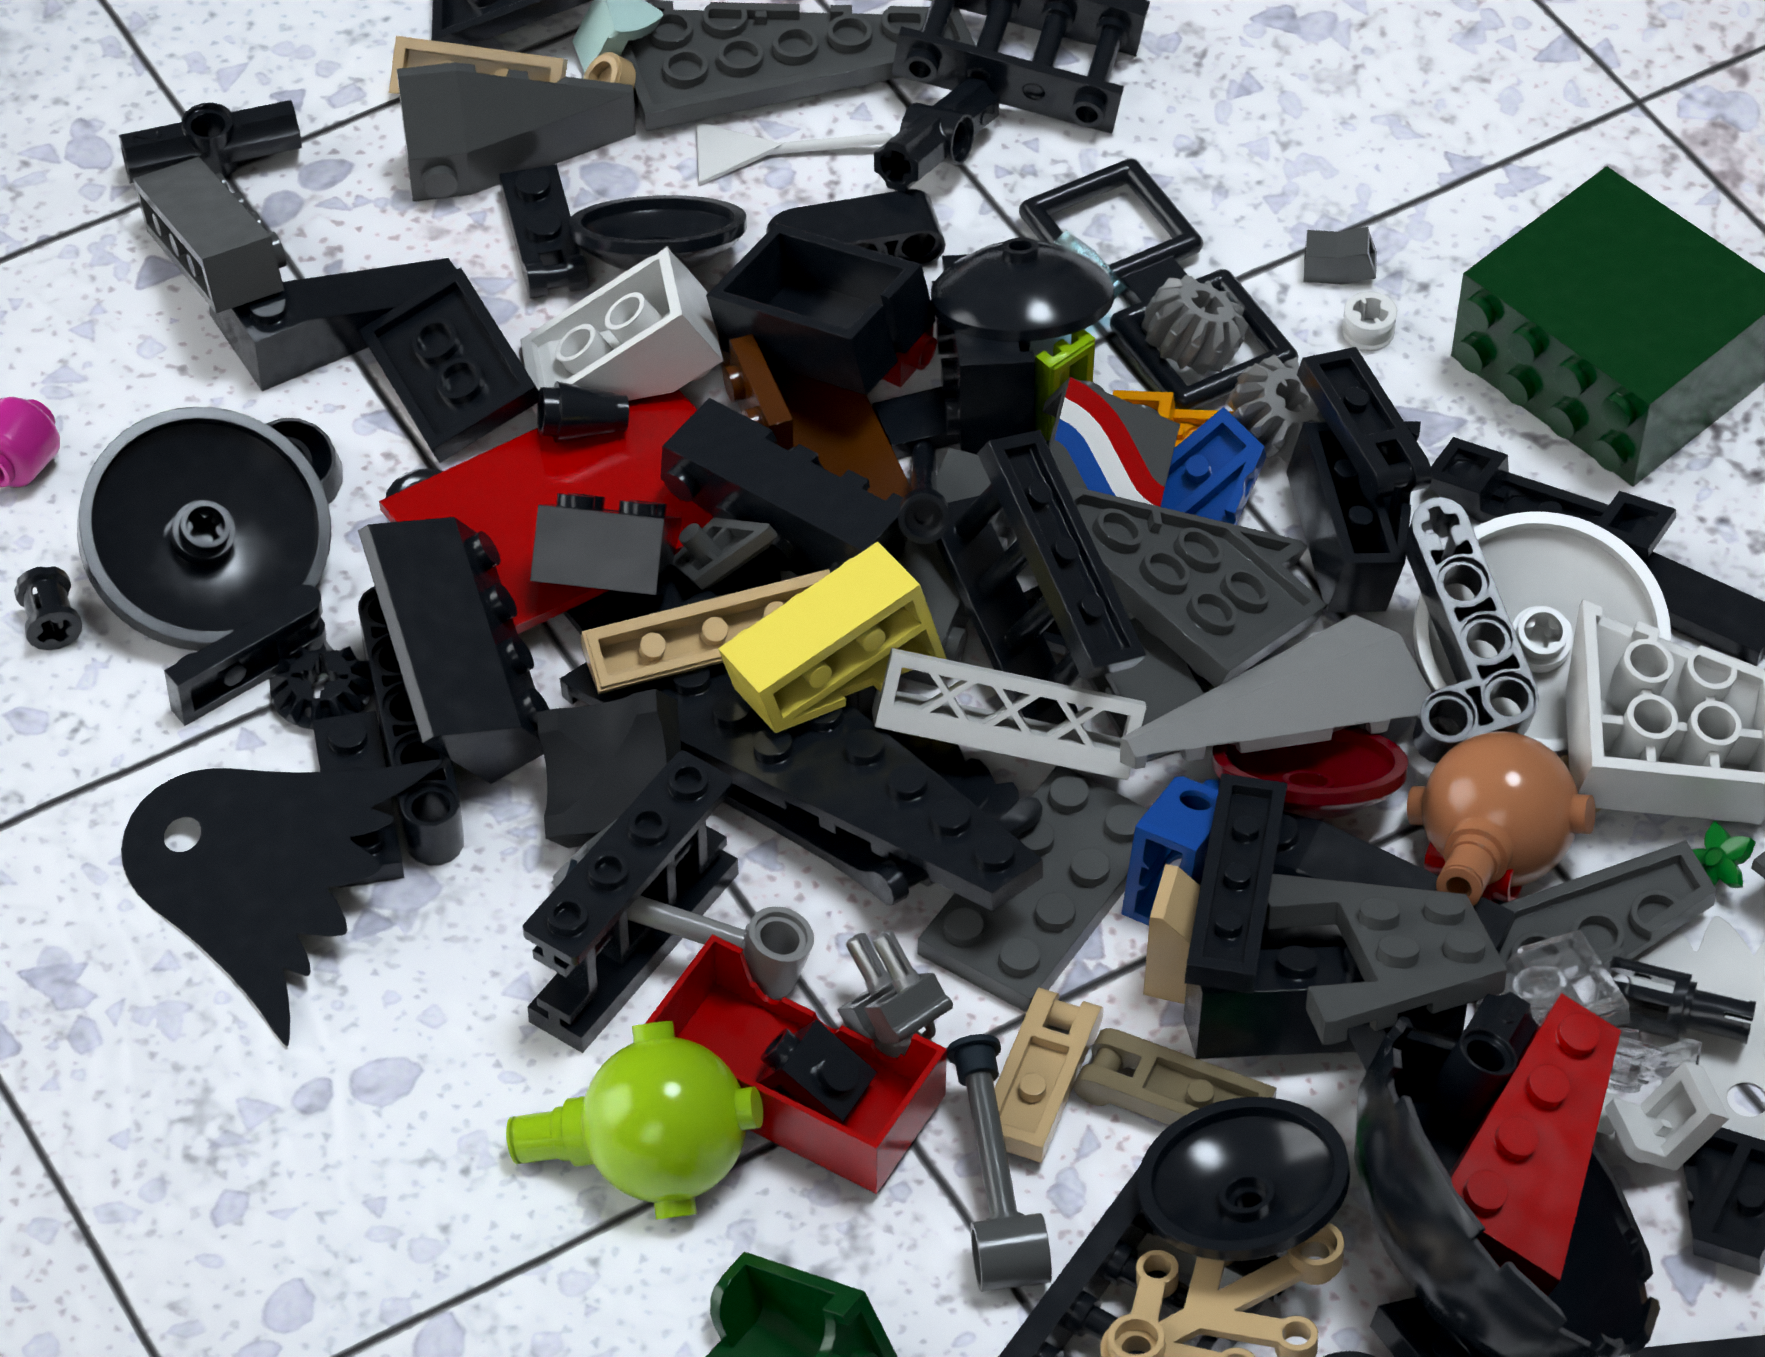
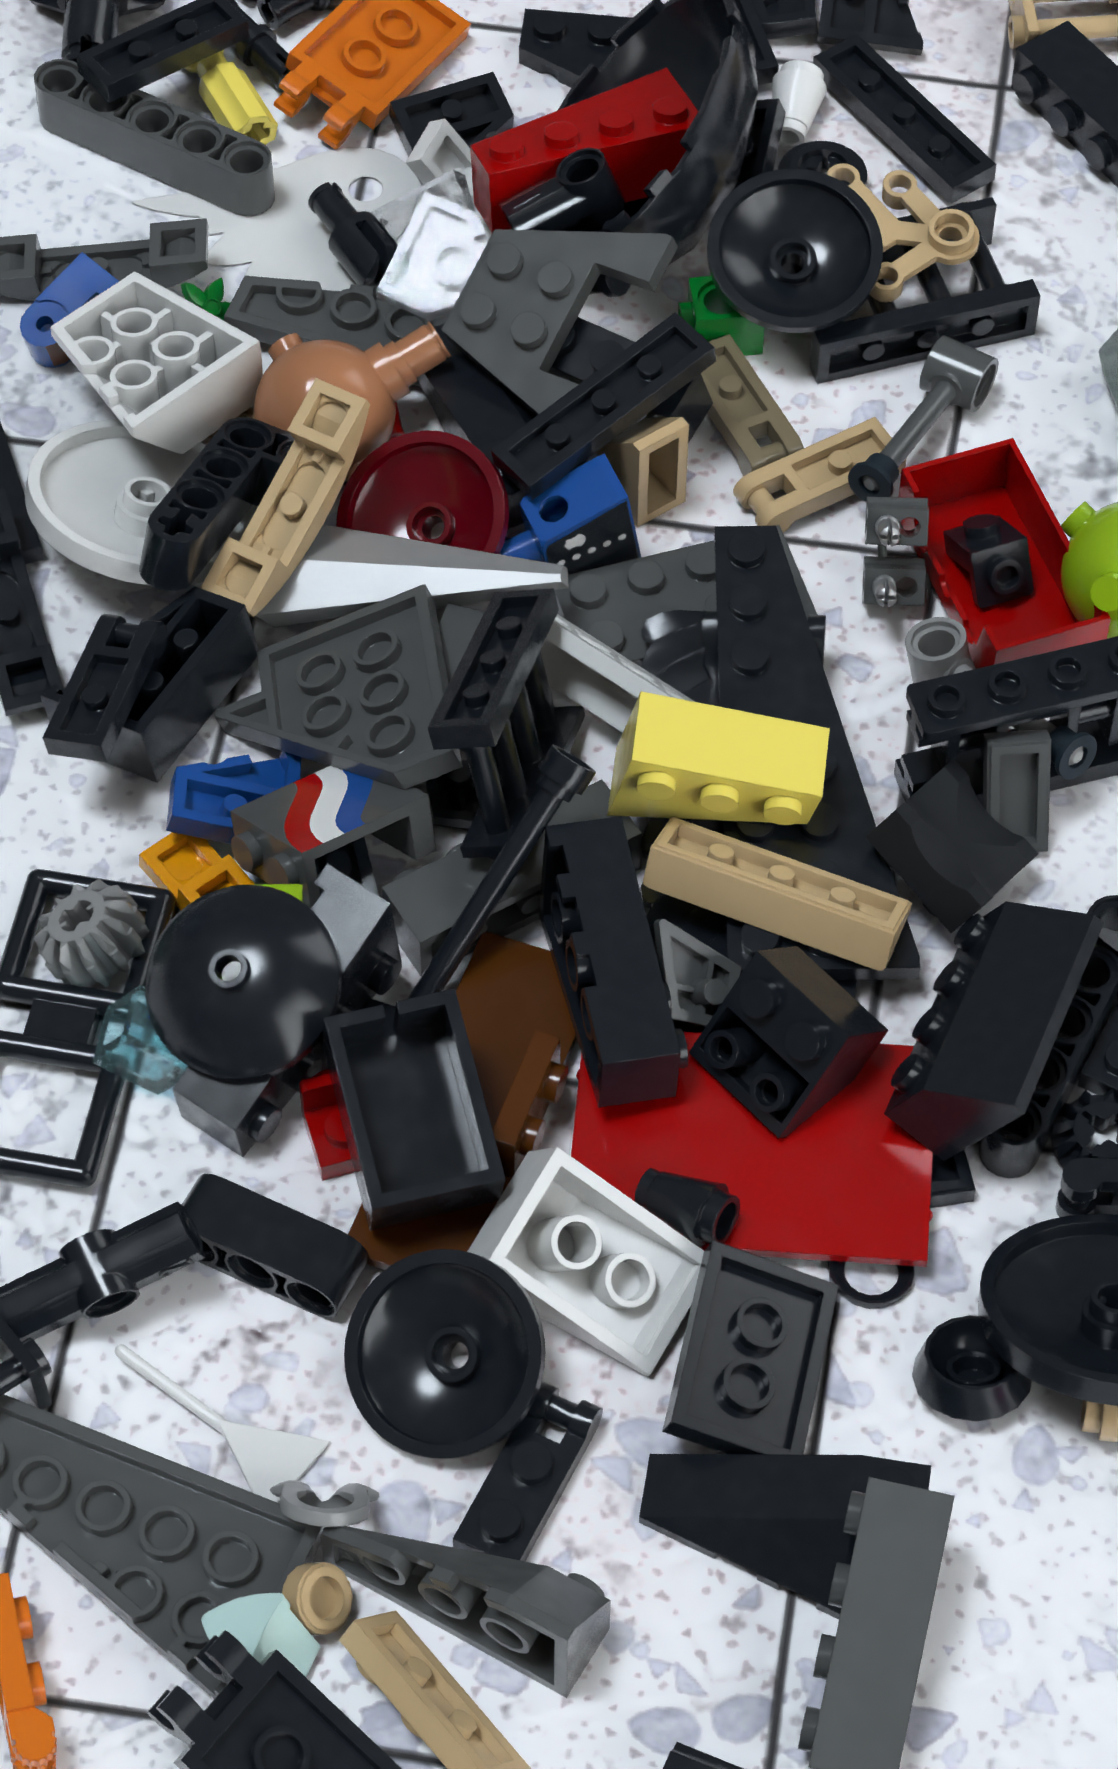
camera: 140 degrees left, 5 degrees up
(642, 143) = (344, 1508): none -> light grey piece
(1273, 405) = (112, 814): light grey gear -> none
(1390, 641) = (296, 501): none -> tan slope

